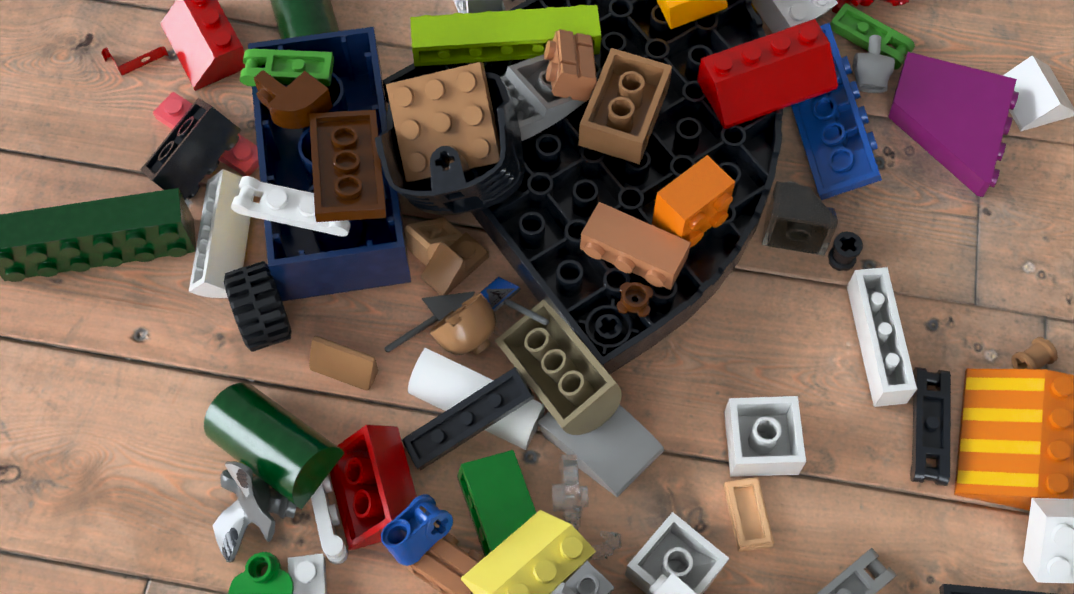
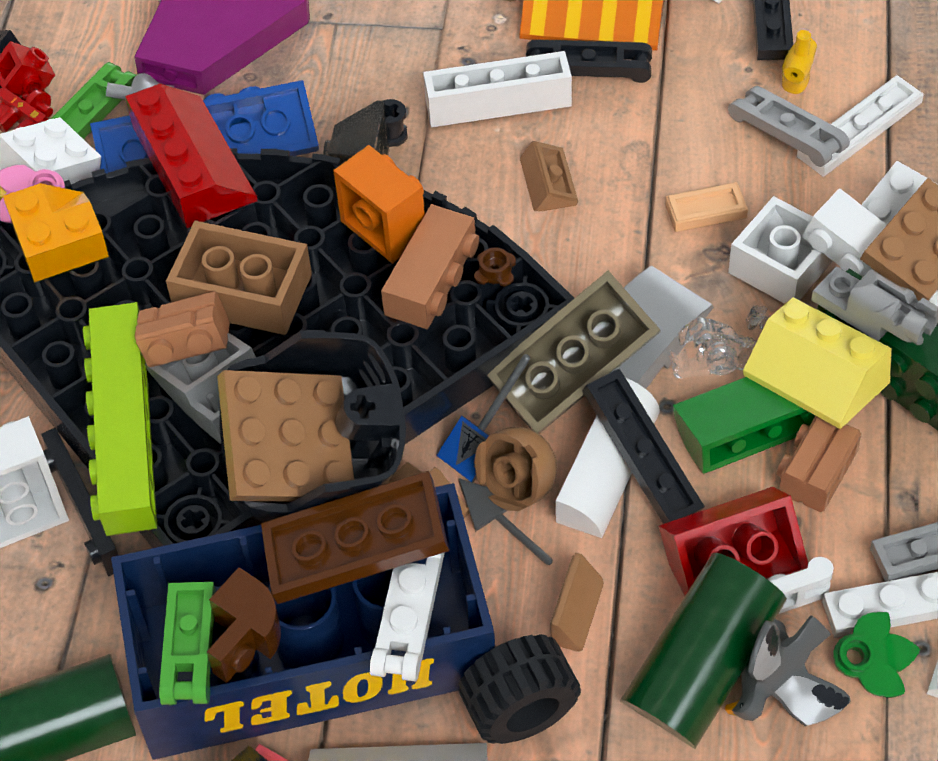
camera: 90 degrees left, 10 degrees down
(413, 530) = (787, 468): blue piece -> none
(764, 436) = (625, 183): white brick -> none
(788, 379) = (548, 177): none -> medium nougat slope

